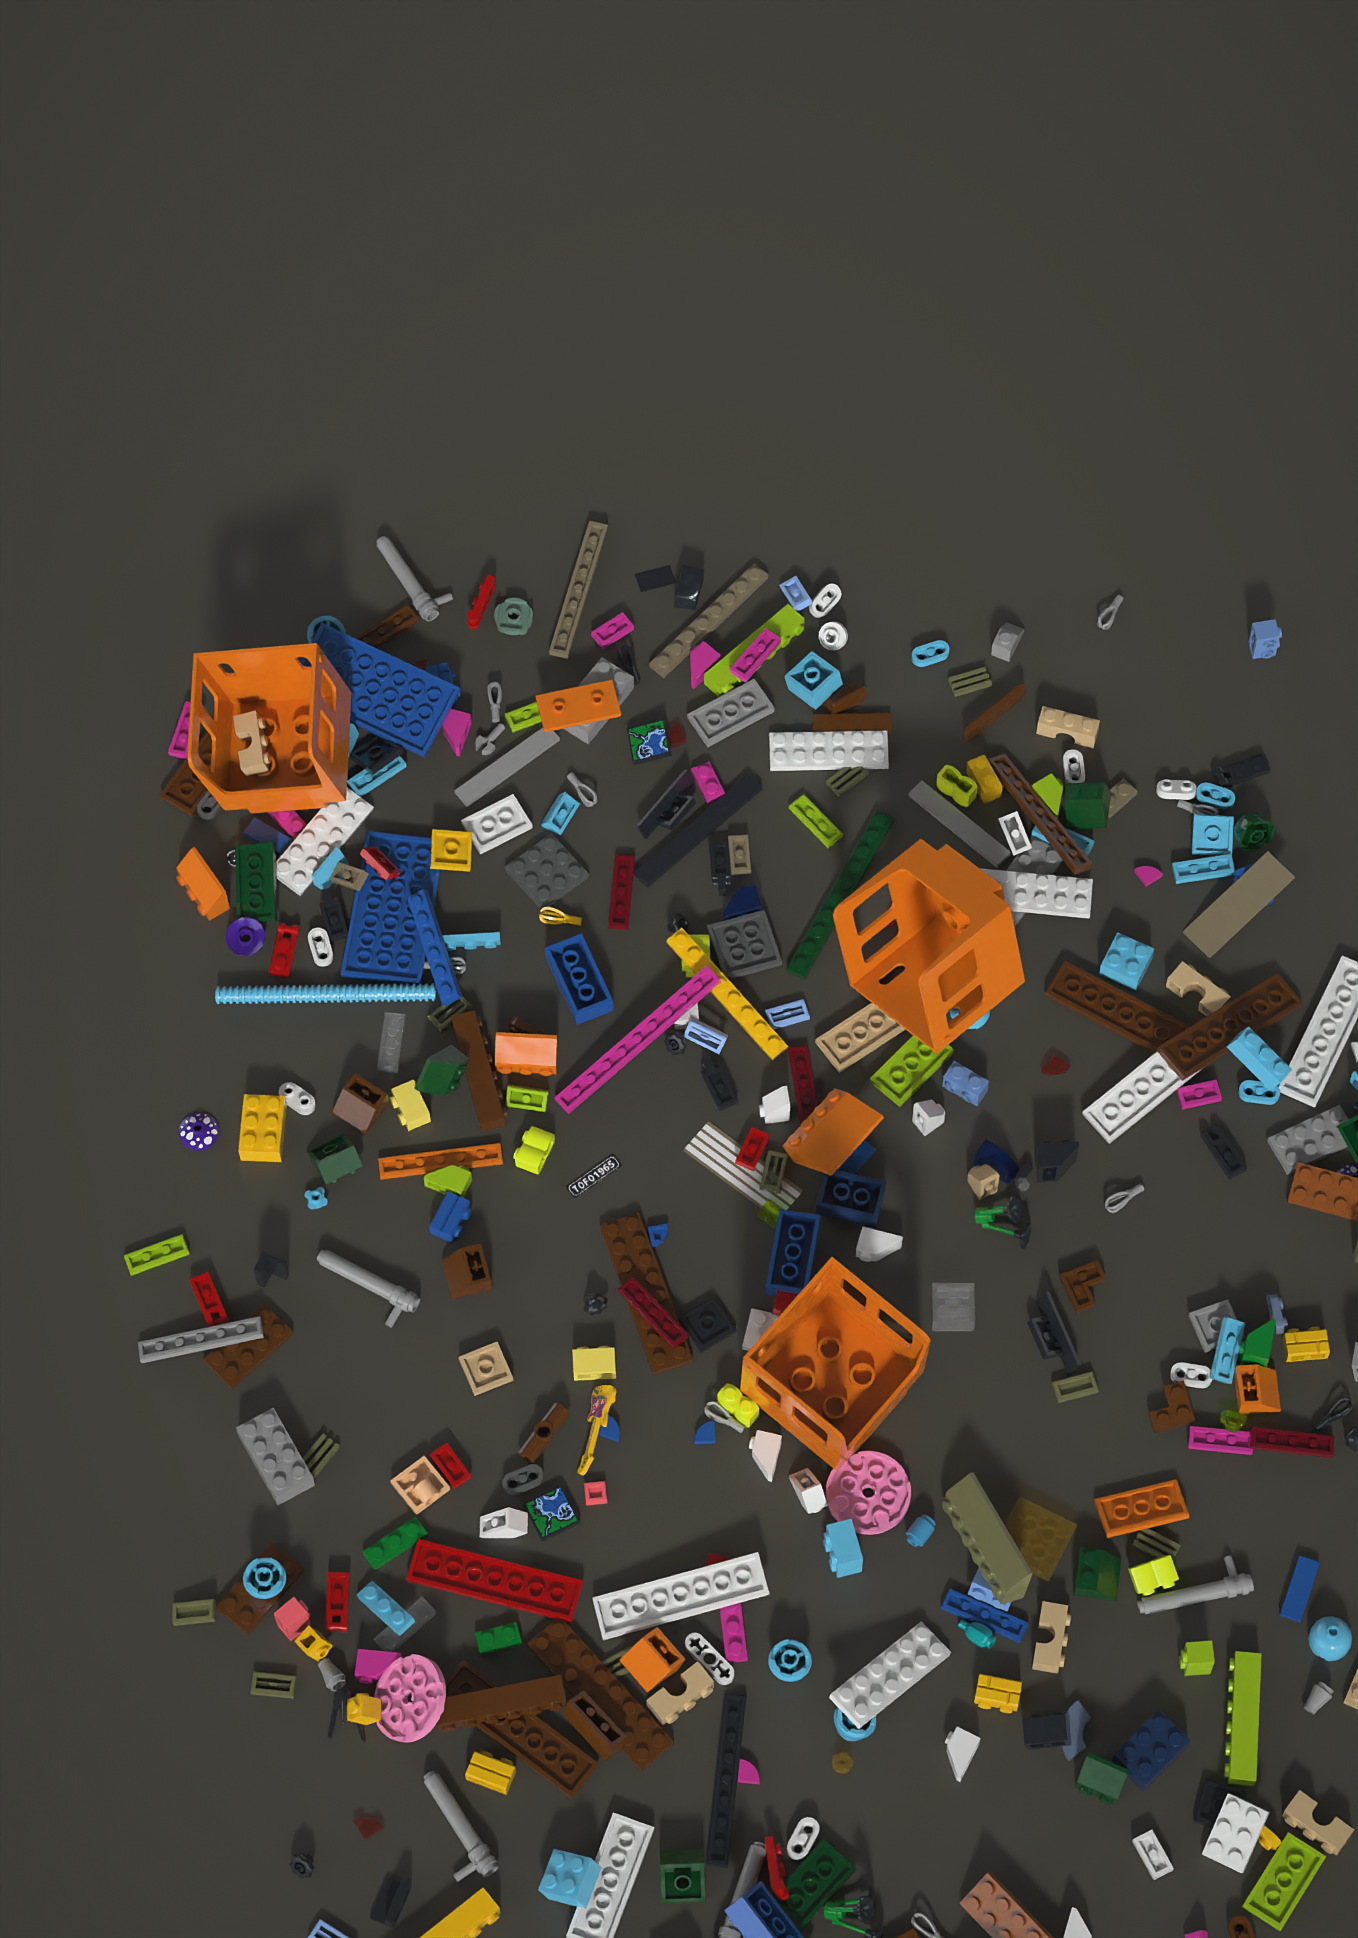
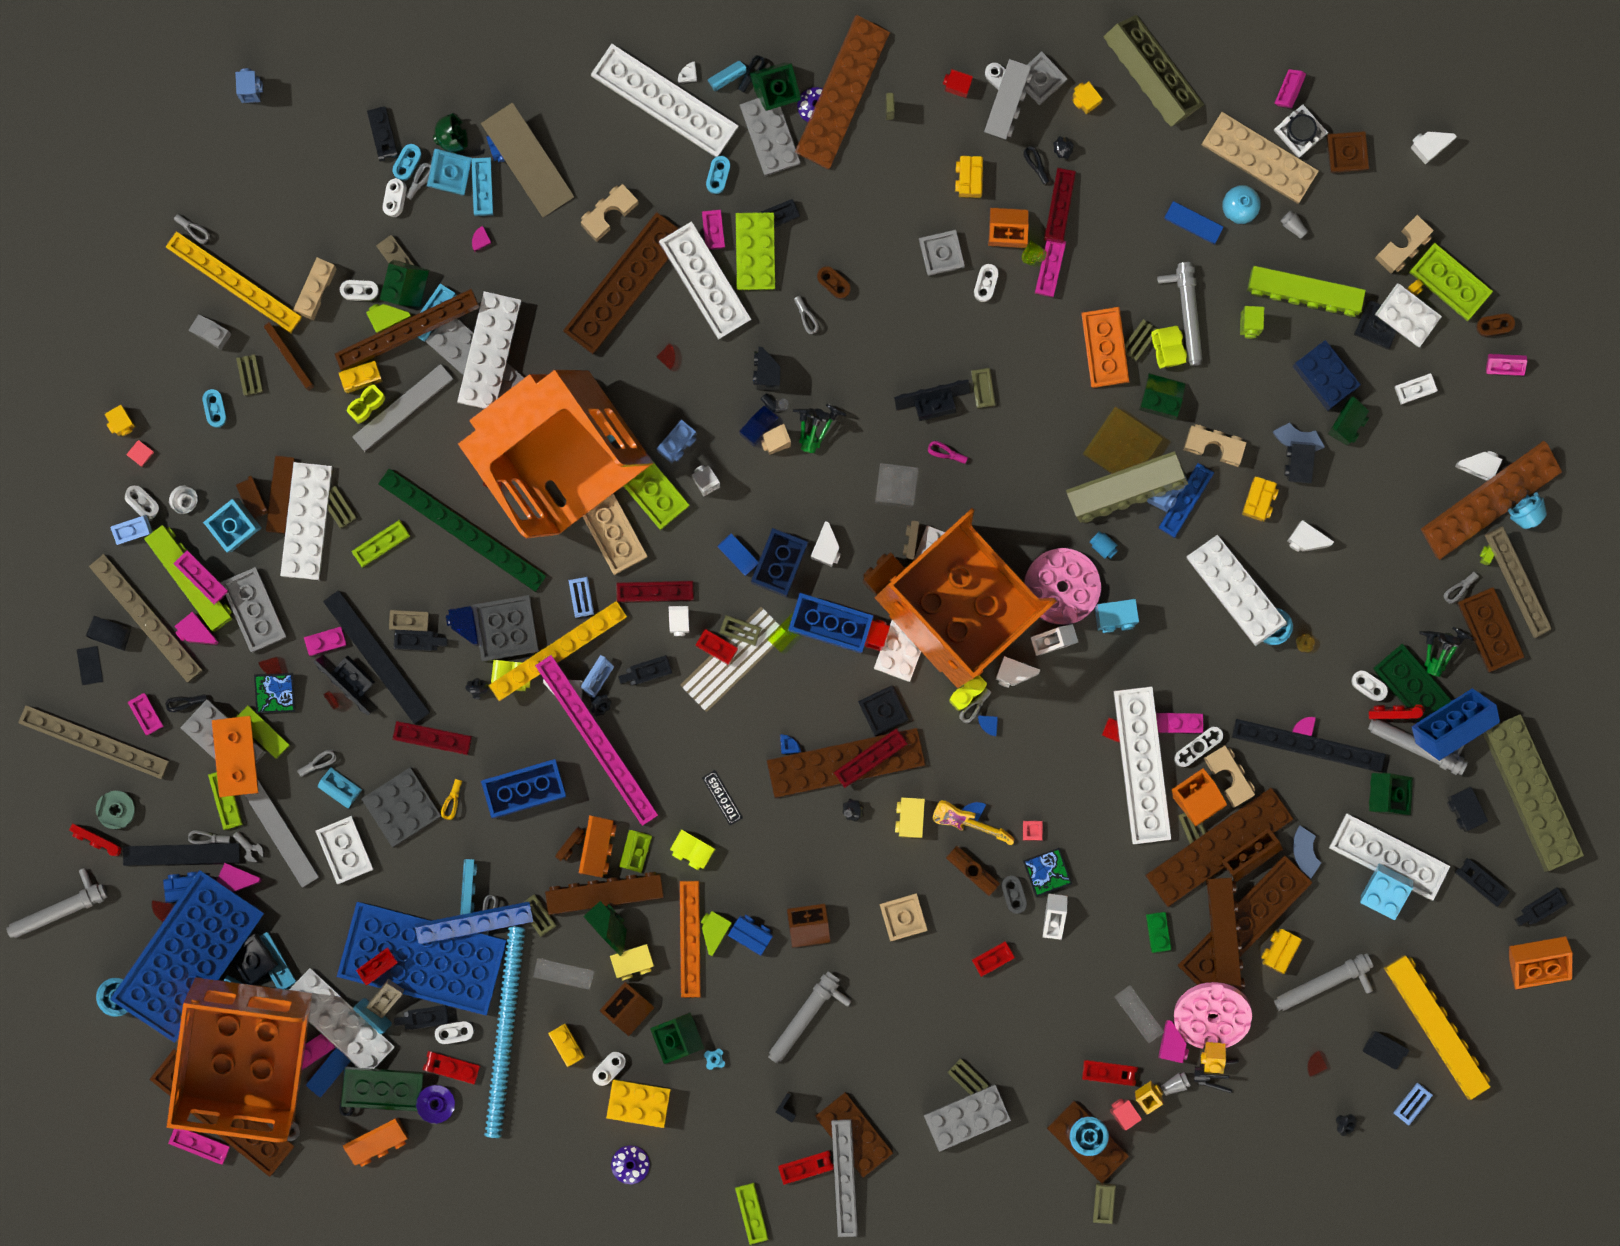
camera: 90 degrees left, 20 degrees up
(254, 758) = (256, 1077): tan arch -> none
(274, 1693) = (1170, 1136): olive tile -> none
(317, 1052) = (566, 1045): none -> yellow brick
(385, 1608) = (1122, 1030): medium azure plate -> none
(389, 627) = (112, 939): reddish brown tile -> none
(395, 1543) = (1059, 1016): green plate -> none
(420, 1485) = (1008, 988): light nougat plate -> none
(451, 850) = (371, 896): yellow plate -> none
(476, 680) = (181, 854): none -> black tile
(495, 1580) = (1106, 929): red plate -> none
(605, 1787) = (1304, 852): none -> sand blue tile
(607, 737) = (265, 734): none -> lime tile
(648, 793) = (331, 700): none -> clear red tile
(790, 1660) = (1213, 676): medium azure cone -> none
(832, 1132) = (716, 570): orange slope -> none
(874, 595) = (140, 453): none -> coral tile
(904, 571) = (119, 421): none -> yellow brick
(978, 1633) = (1203, 508): teal plant -> none
(996, 1363) = (953, 455): none -> dark pink piece
(1015, 833) = (423, 356): white slope -> none
(1061, 655) = (233, 282): none -> yellow plate
(1077, 1284) = (887, 371): reddish brown plate -> none
(1126, 961) = (571, 273): medium azure brick -> none
(1163, 1221) = (834, 282): none -> reddish brown plate
(1178, 1411) = (1020, 301): reddish brown plate -> none
(1183, 1136) = (755, 251): none -> lime plate
(1210, 1036) = (654, 190): reddish brown plate -> none
(1227, 1350) = (970, 246): medium azure plate -> none
(1257, 1345) = (971, 218): green slope -> none
(1259, 1058) = (693, 168): medium azure brick -> none
(1275, 1306) = (945, 197): sand blue plate -> none

